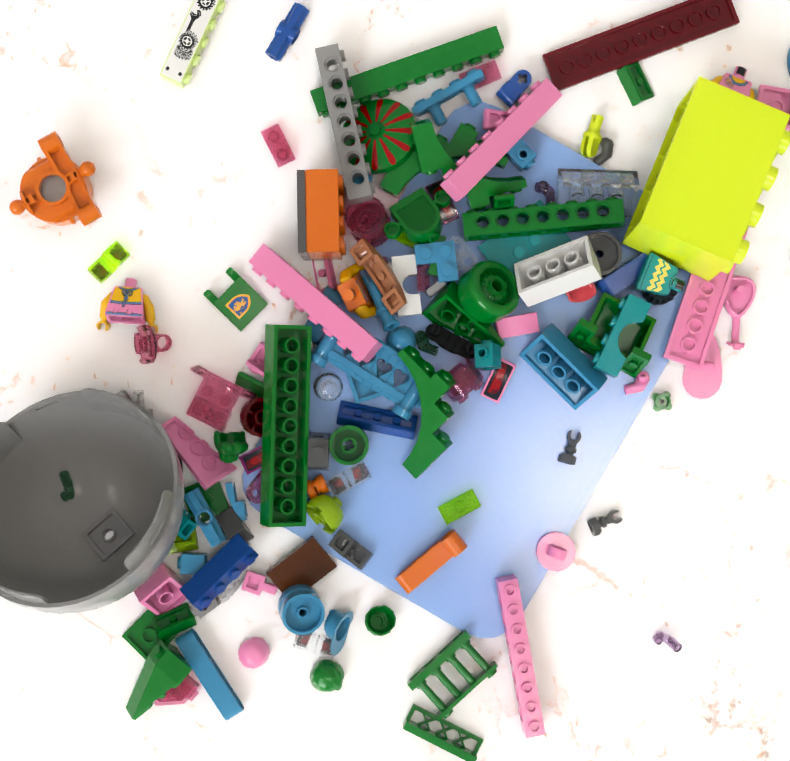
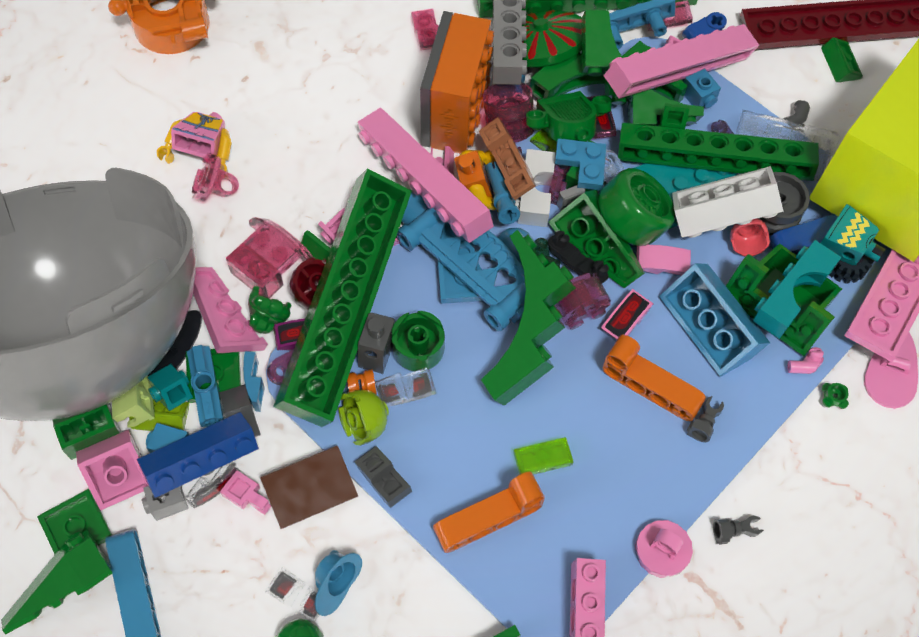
camera: 15 degrees right, 25 degrees down
(67, 485) = (47, 308): clear green arm -> none
(109, 262) = (199, 96): clear neon green slope -> none
(174, 621) = (114, 514): green slope -> none
(180, 694) = (83, 612): clear pink slope -> none
(239, 302) = (331, 168): green flag -> none
(253, 652) = (207, 586): bright pink hair -> none
(301, 609) = (300, 550): dark azure wheel -> none
(327, 385) = (411, 273): clear hair -> none
(376, 420) = (467, 330): blue slope -> none
(380, 620) = (396, 582): green hair -> none
(487, 355) = (620, 279): teal brick -> none
(527, 430) = (651, 381): none -> orange beam
(592, 137) = (786, 95): neon yellow arm -> none

